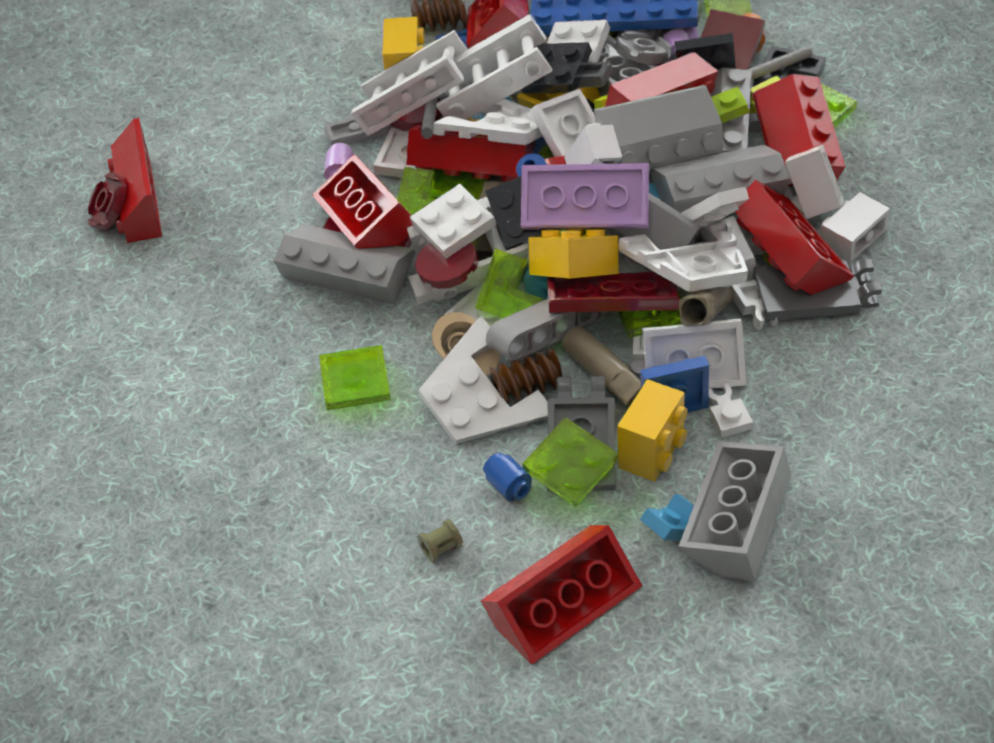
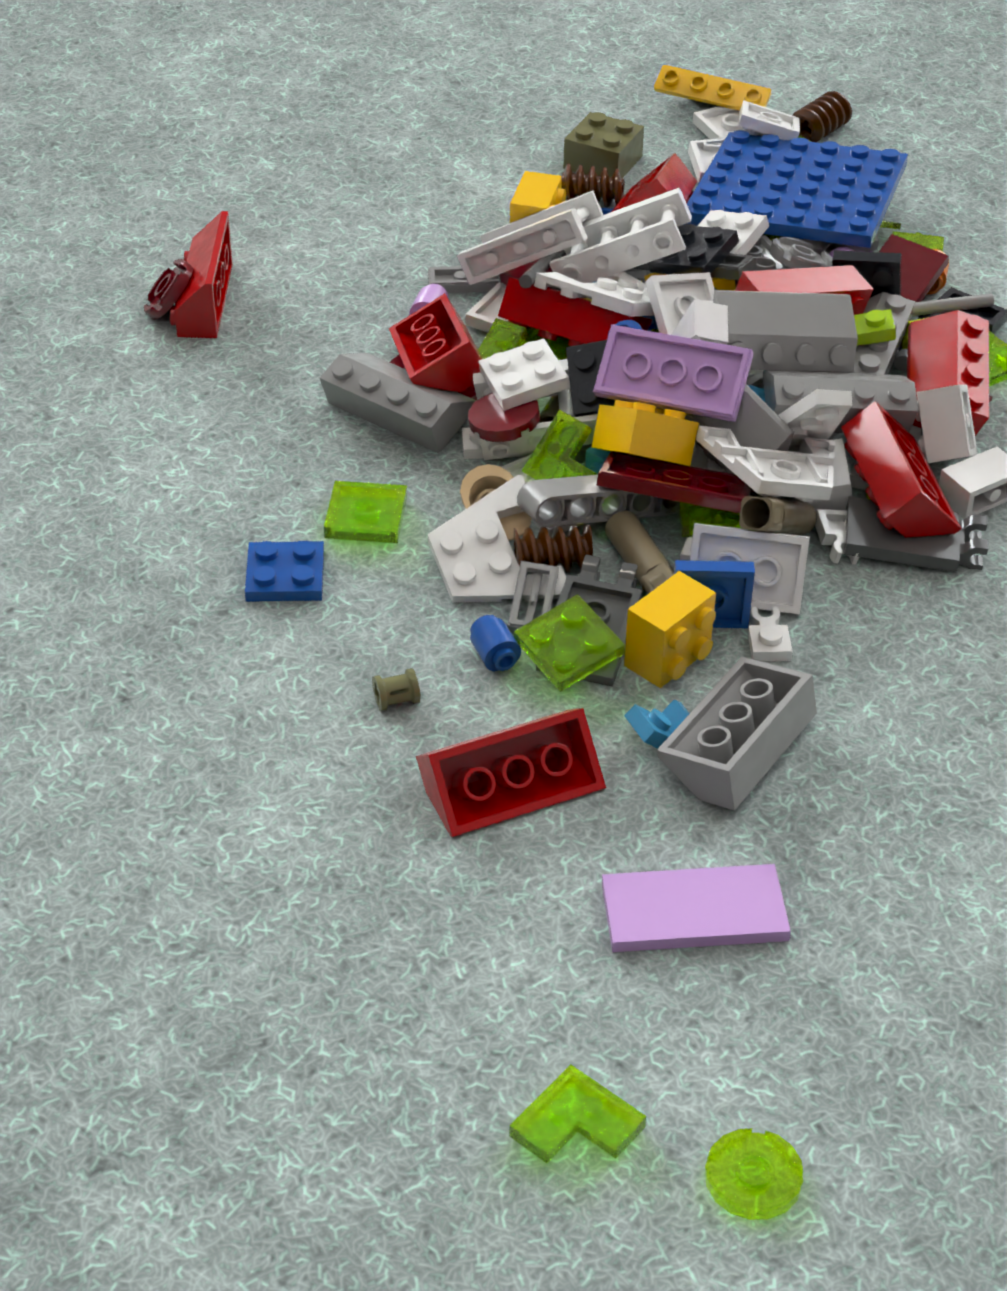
camera: 10 degrees right, 5 degrees down
(304, 450) = (284, 571): none -> blue plate
(522, 399) = (539, 570): none -> light grey tile
(750, 677) = (694, 908): none -> lavender tile

